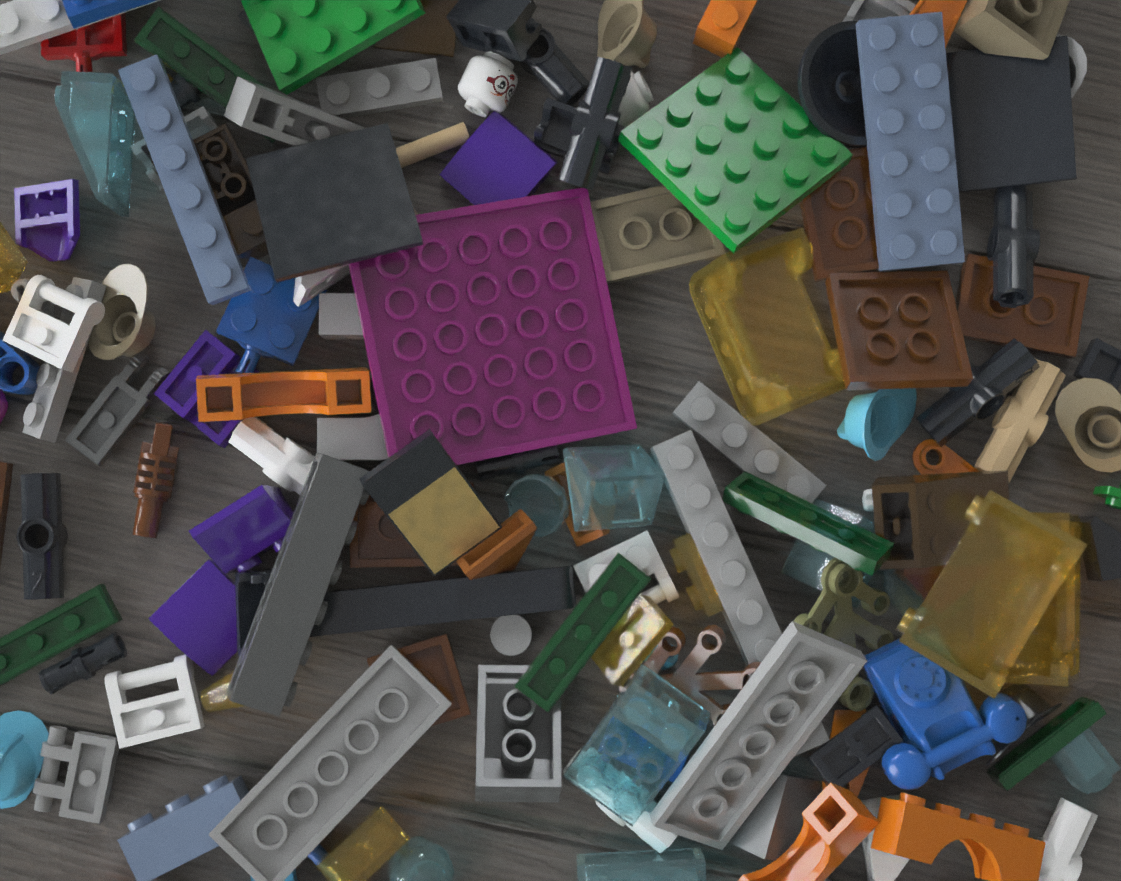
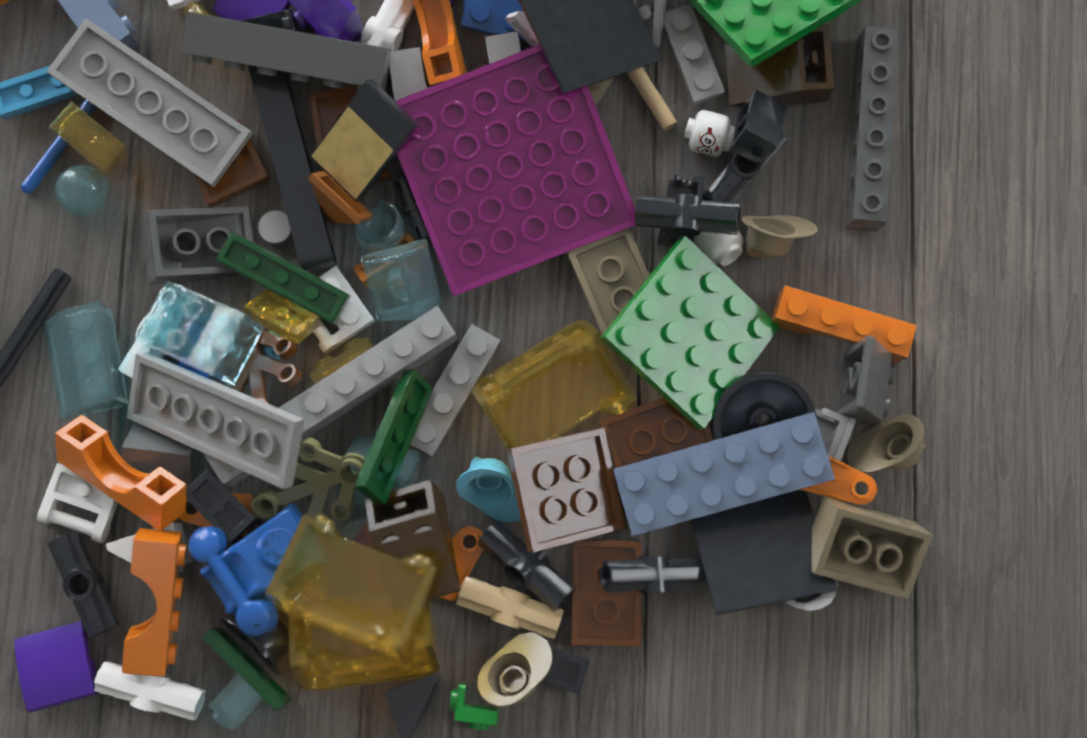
camera: 85 degrees right, 5 degrees down
(498, 163) = (647, 154): dark purple slope -> none

